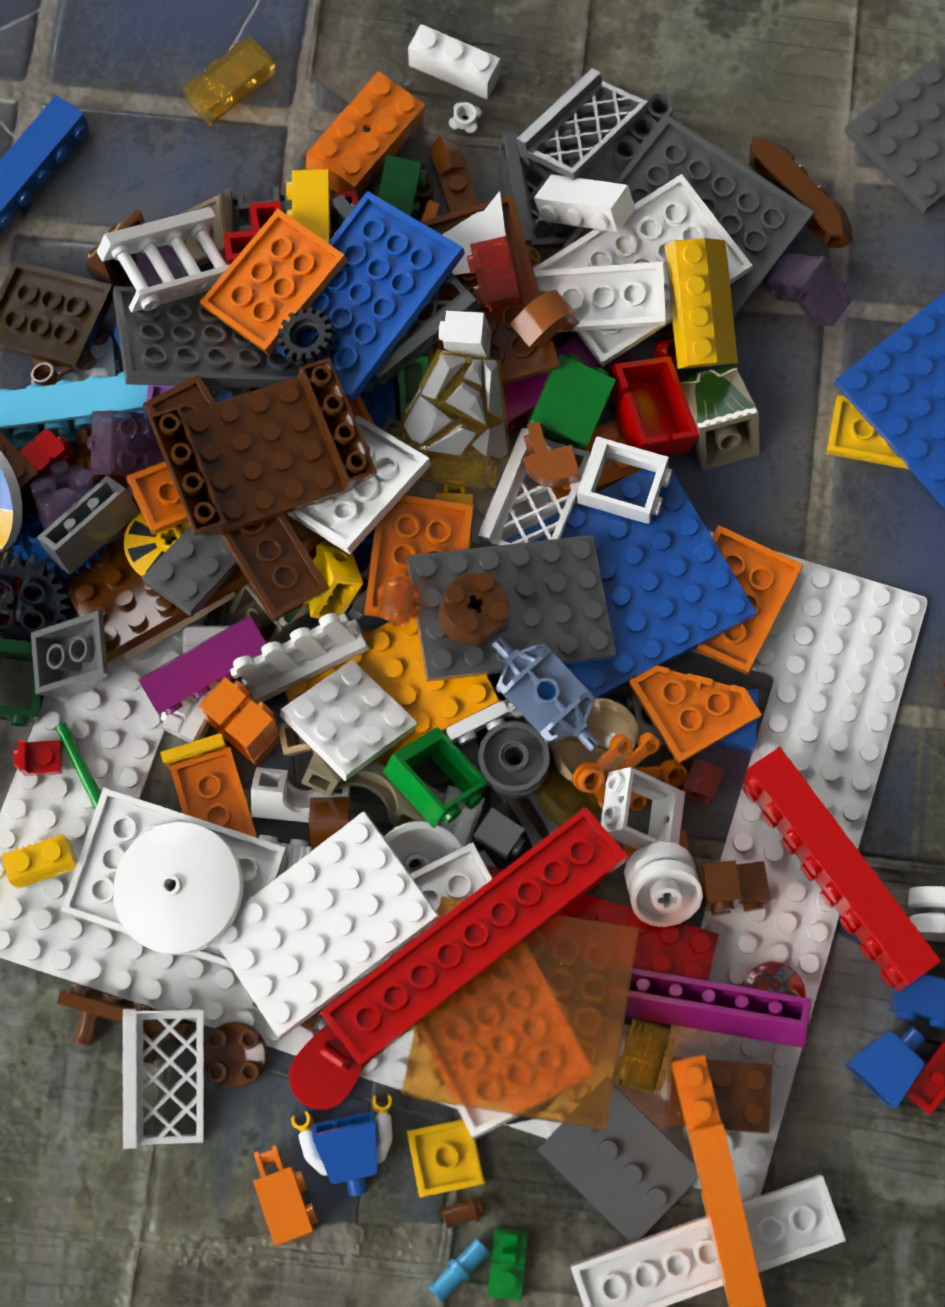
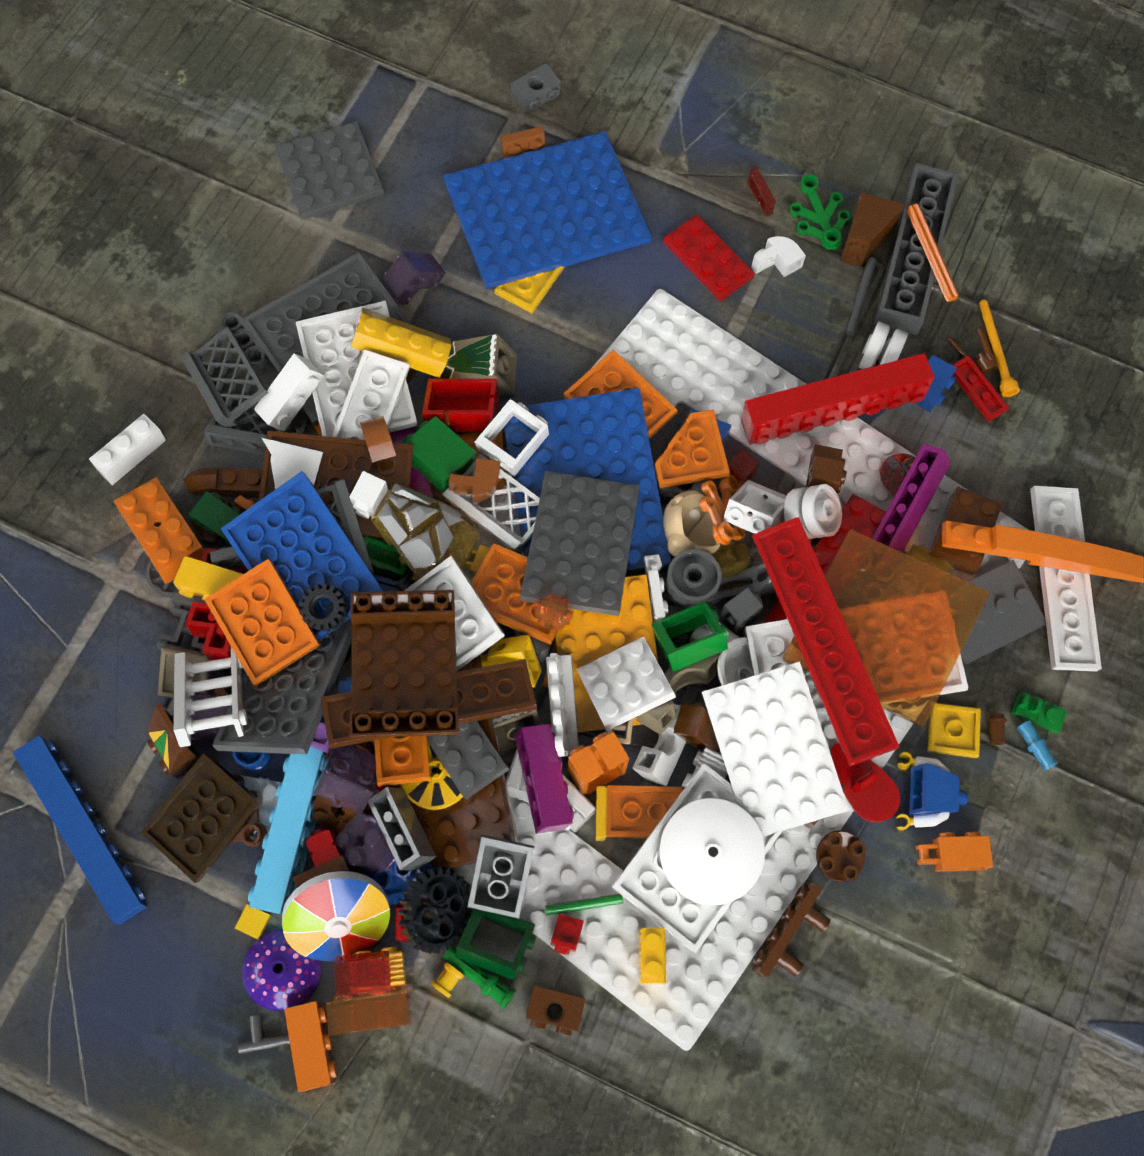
camera: 75 degrees left, 5 degrees down
(133, 1077) = (845, 935): white fence -> none
(228, 80) = (62, 617): clear yellow brick -> none
(465, 109) = (171, 453): white plate -> none
(467, 625) = (582, 559): reddish brown brick -> none
(495, 274) = (327, 460): clear red brick -> none
(552, 718) = (645, 548): sand blue plate -> none
(665, 348) = (418, 385): red hinge -> none
(778, 167) = (311, 265): reddish brown brick -> none
(889, 1065) = (969, 422): blue torso -> none

